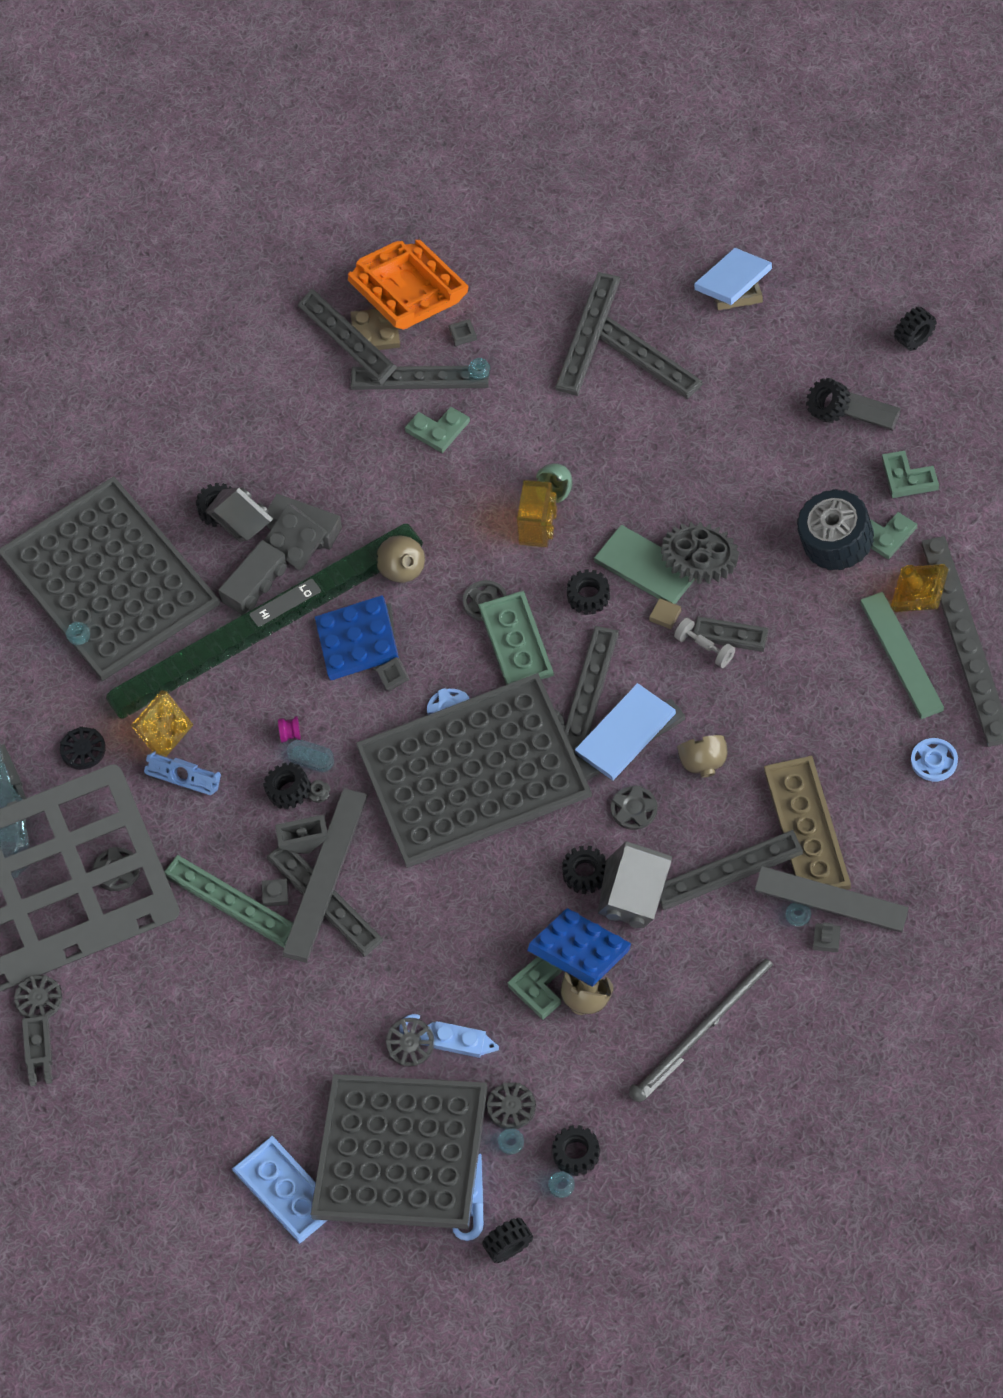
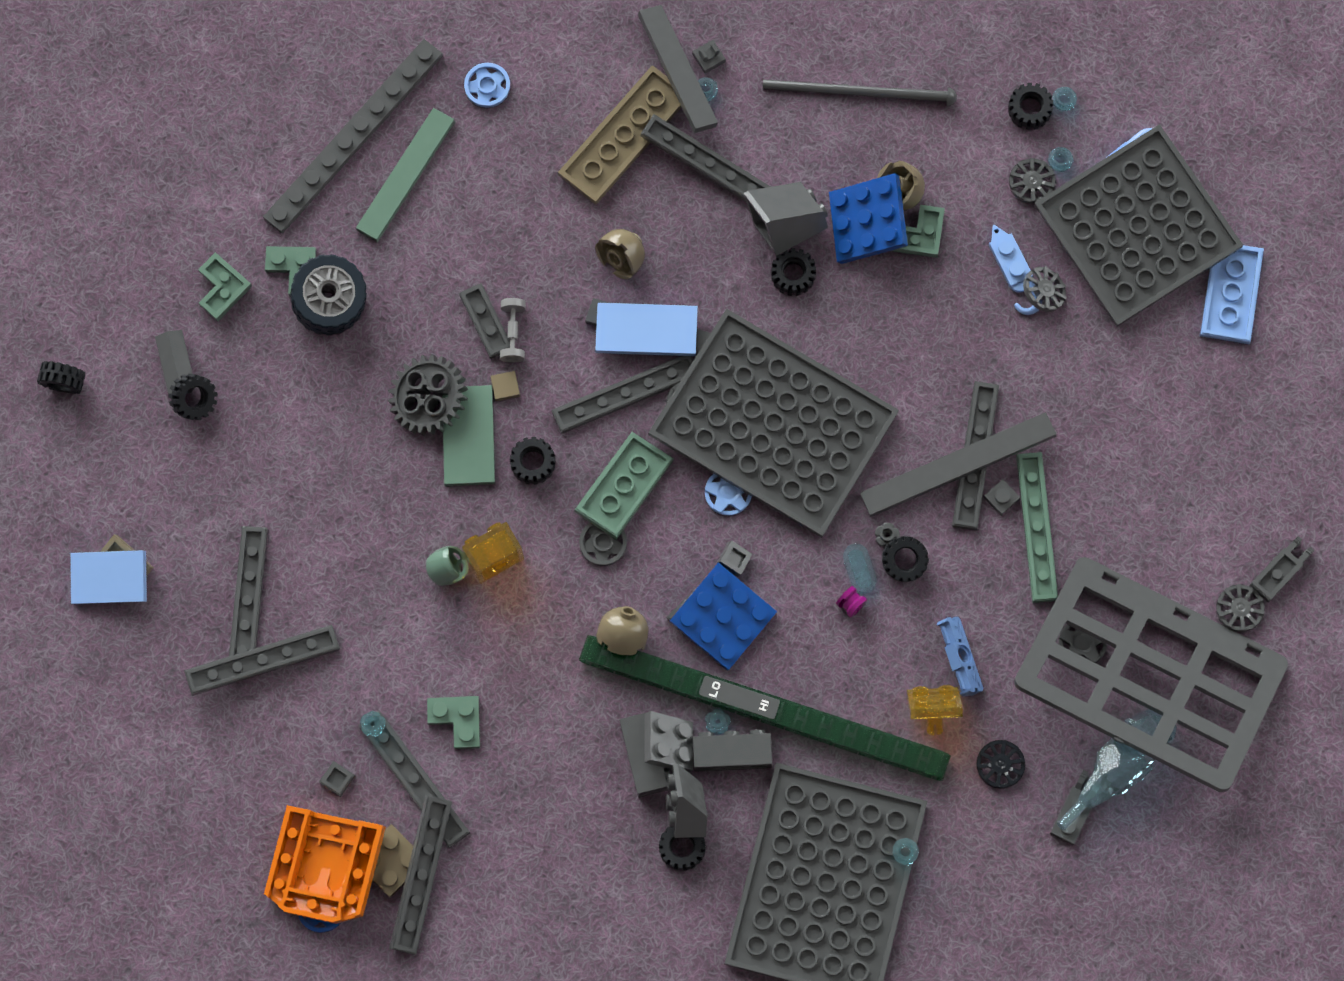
camera: 130 degrees left, 15 degrees up
(278, 584) = (724, 719): none -> clear light blue plate
(302, 834) = (940, 507): dark grey slope -> none
(507, 1240) = (1143, 94): black tyre -> none
(634, 807) = (706, 279): dark grey wheel -> none
(919, 582) = (334, 197): clear yellow plate -> none

